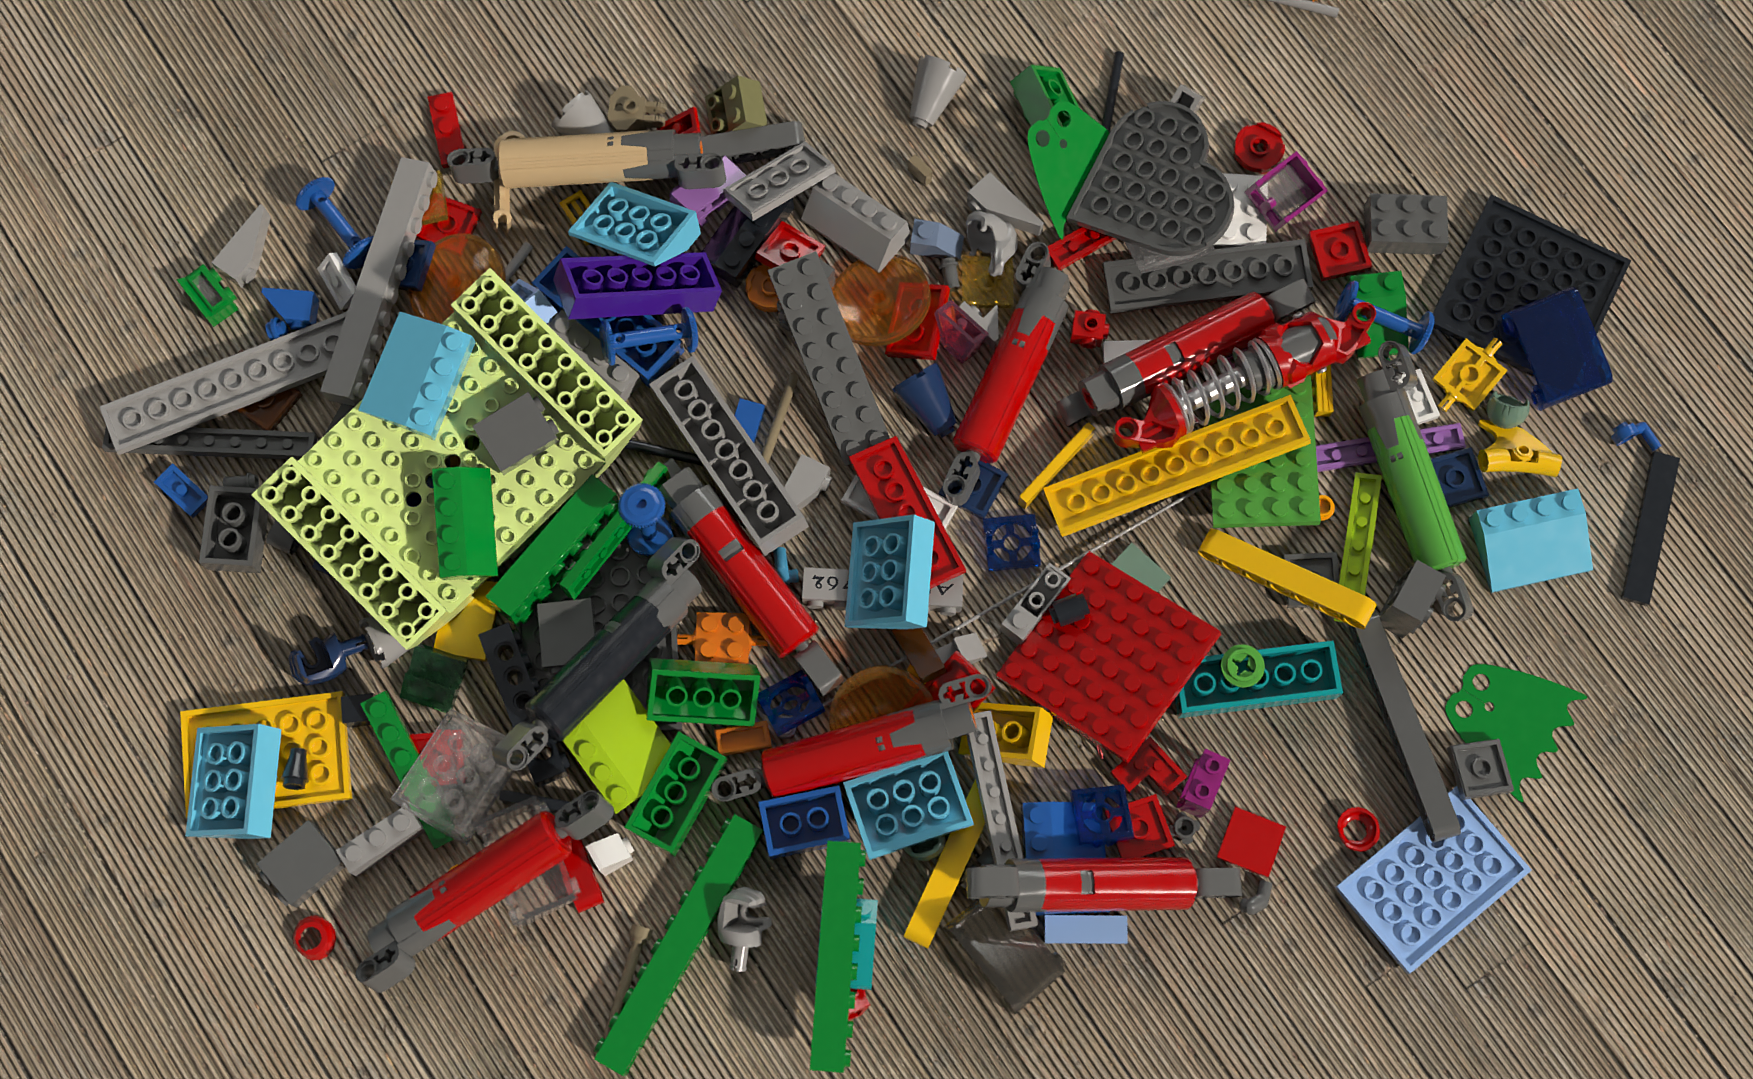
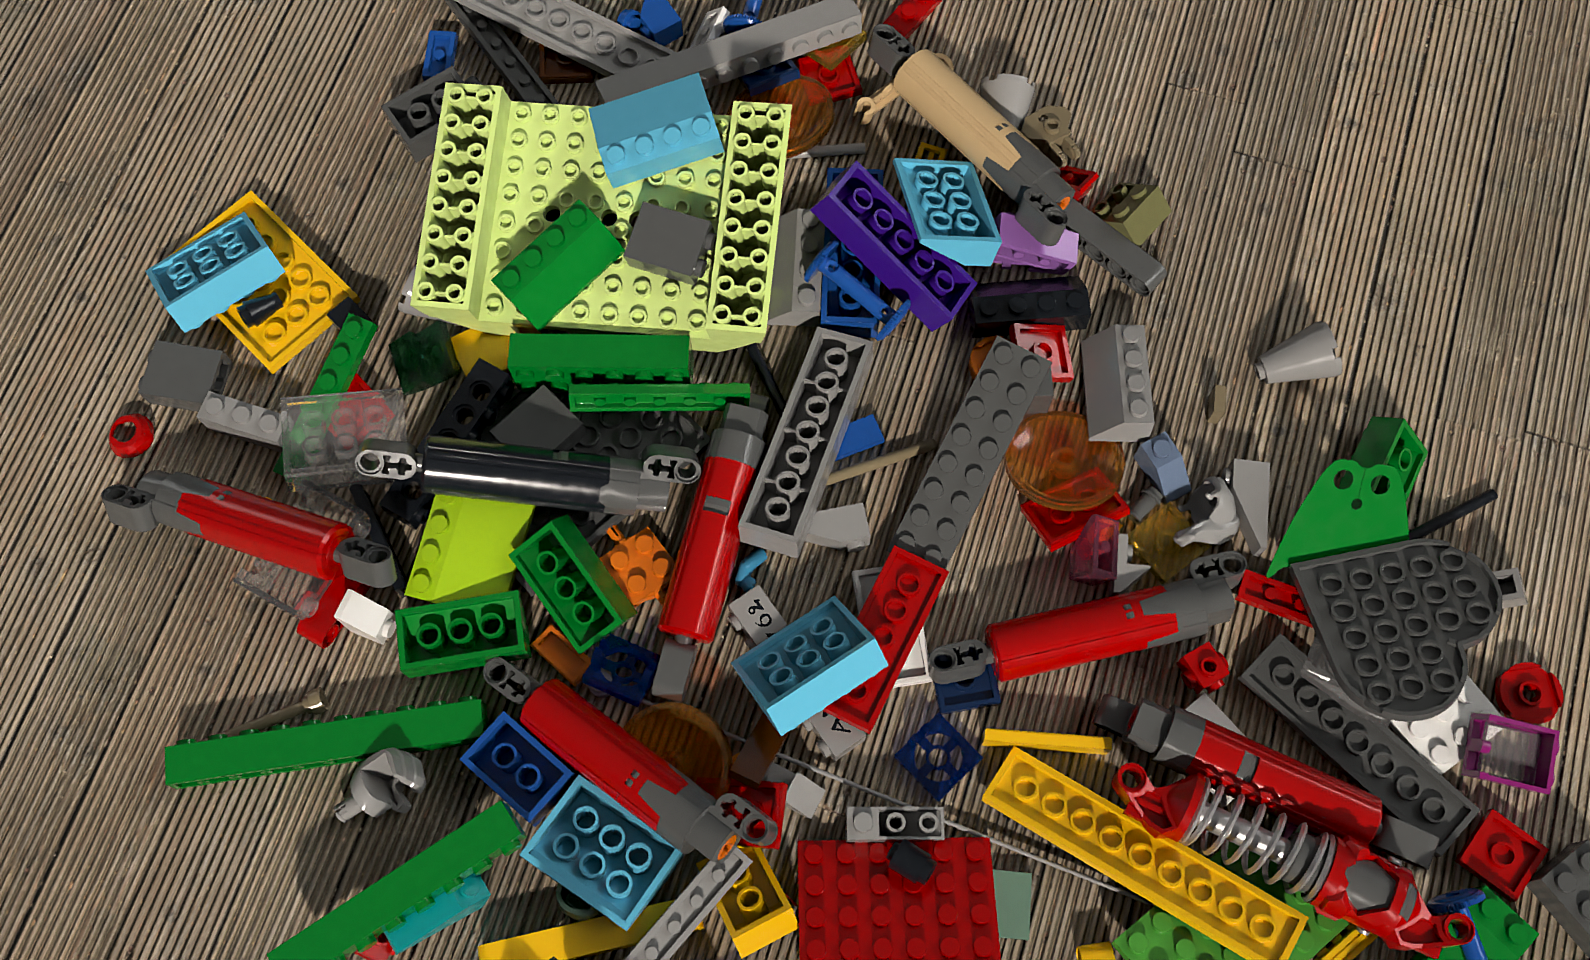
camera: 55 degrees right, 5 degrees down
(330, 659) = (377, 269): dark blue piece -> none
(535, 300) = (807, 181): light blue brick -> none
(643, 509) = (684, 393): blue hose -> none
(779, 180) = (1095, 291): light grey tile -> none
(928, 400) = (1008, 574): dark blue cone -> none

